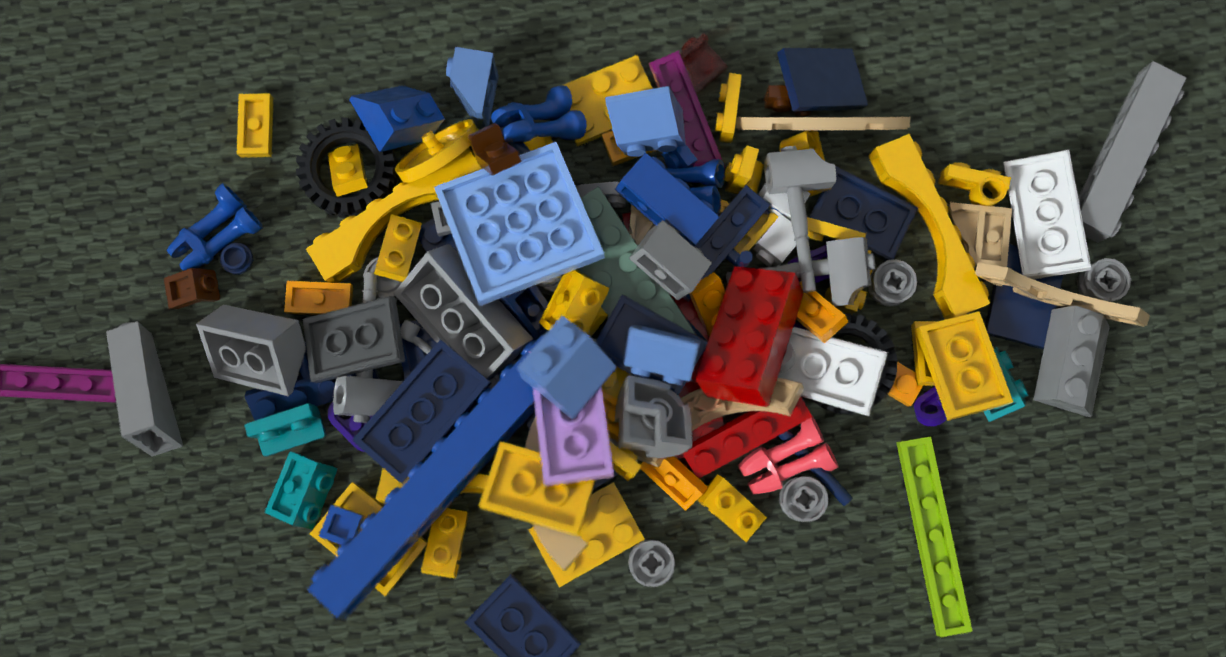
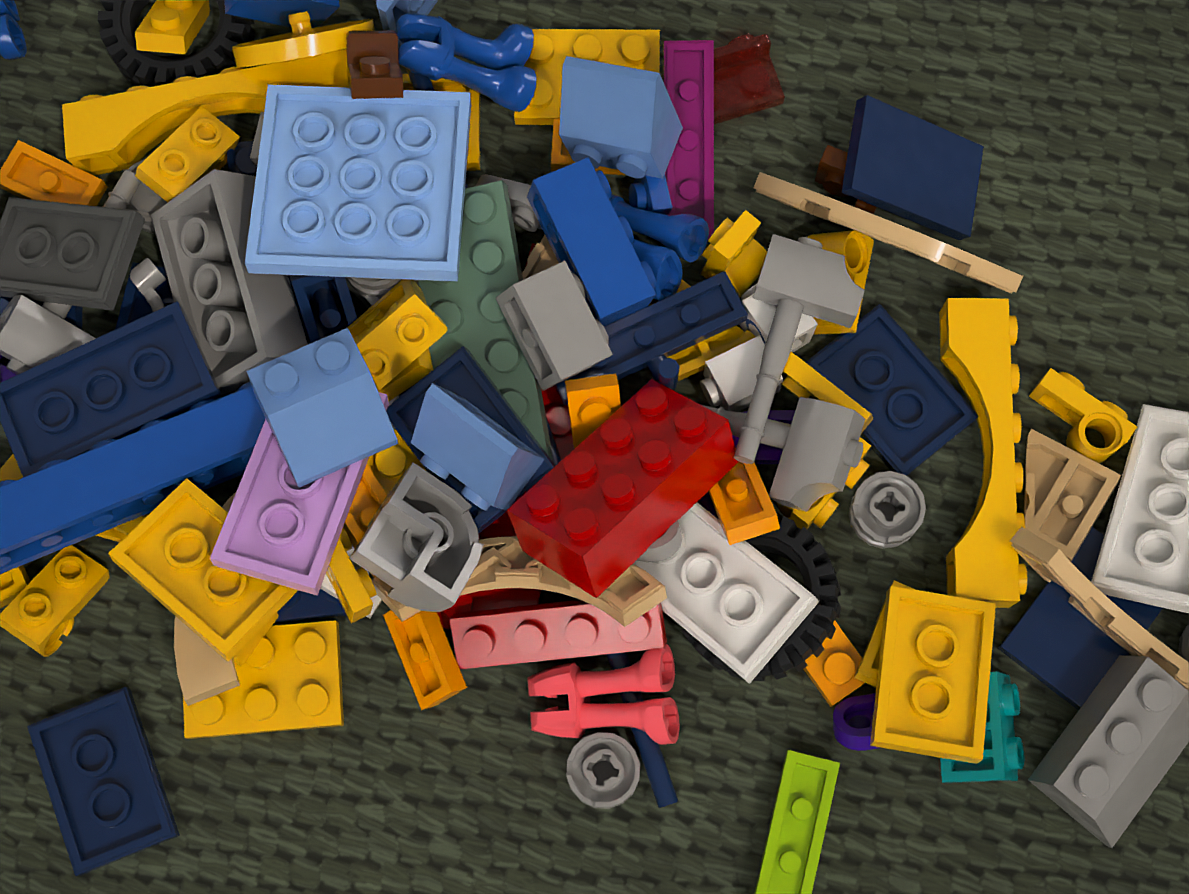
camera: 35 degrees right, 5 degrees down
(651, 563) = (333, 762): light grey wheel -> none
(729, 95) = (766, 142): yellow plate -> none
(732, 508) = (489, 736): yellow plate -> none

